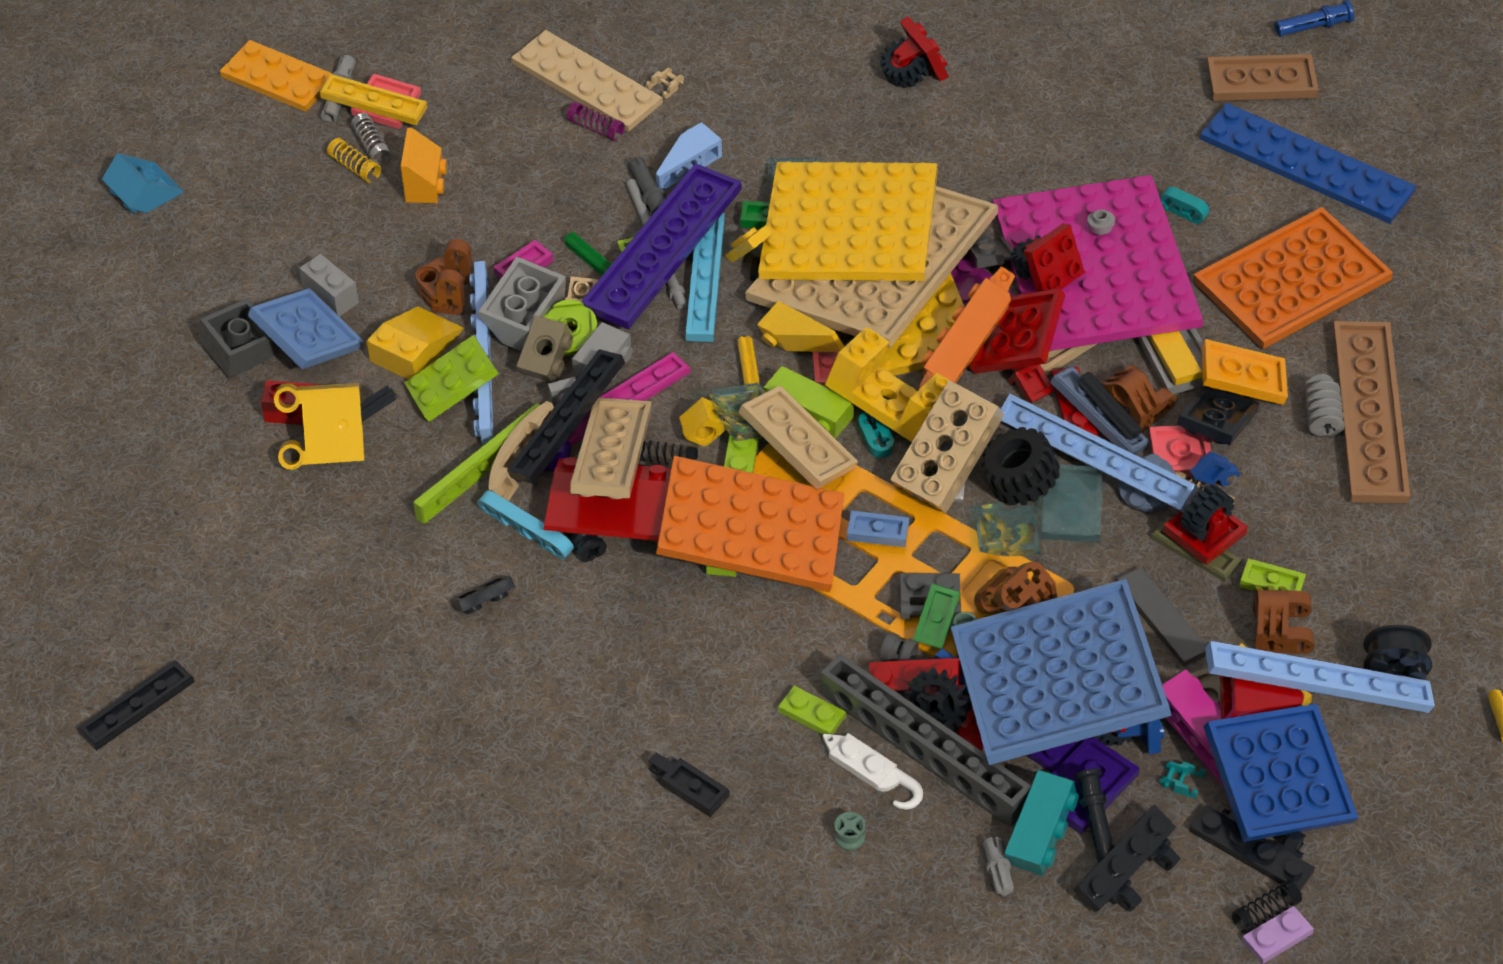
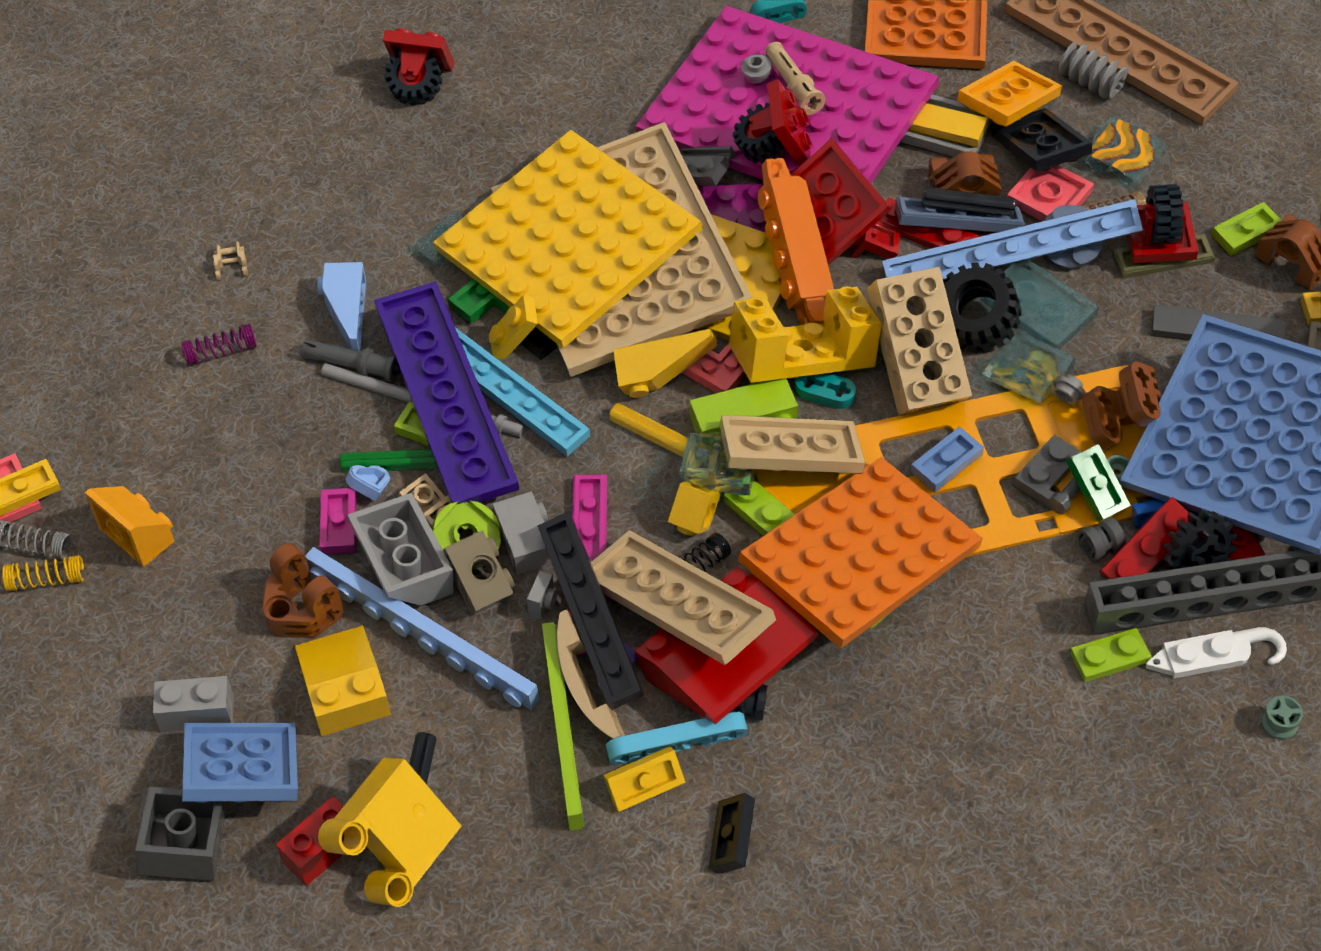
camera: 50 degrees left, 5 degrees up
(451, 378) = (433, 676): lime plate -> none
(480, 527) = (644, 778): none -> yellow plate
(565, 258) = (368, 480): none -> light blue tile
(586, 79) = (153, 317): tan plate -> none
(689, 783) = (1120, 812): black hinge -> none
(1006, 557) = (1068, 389): none -> light grey plate
(1105, 250) = (800, 84): none -> tan pin
(1214, 468) = (1100, 182): blue plate -> none
(1269, 470) = (1124, 151): none -> slope

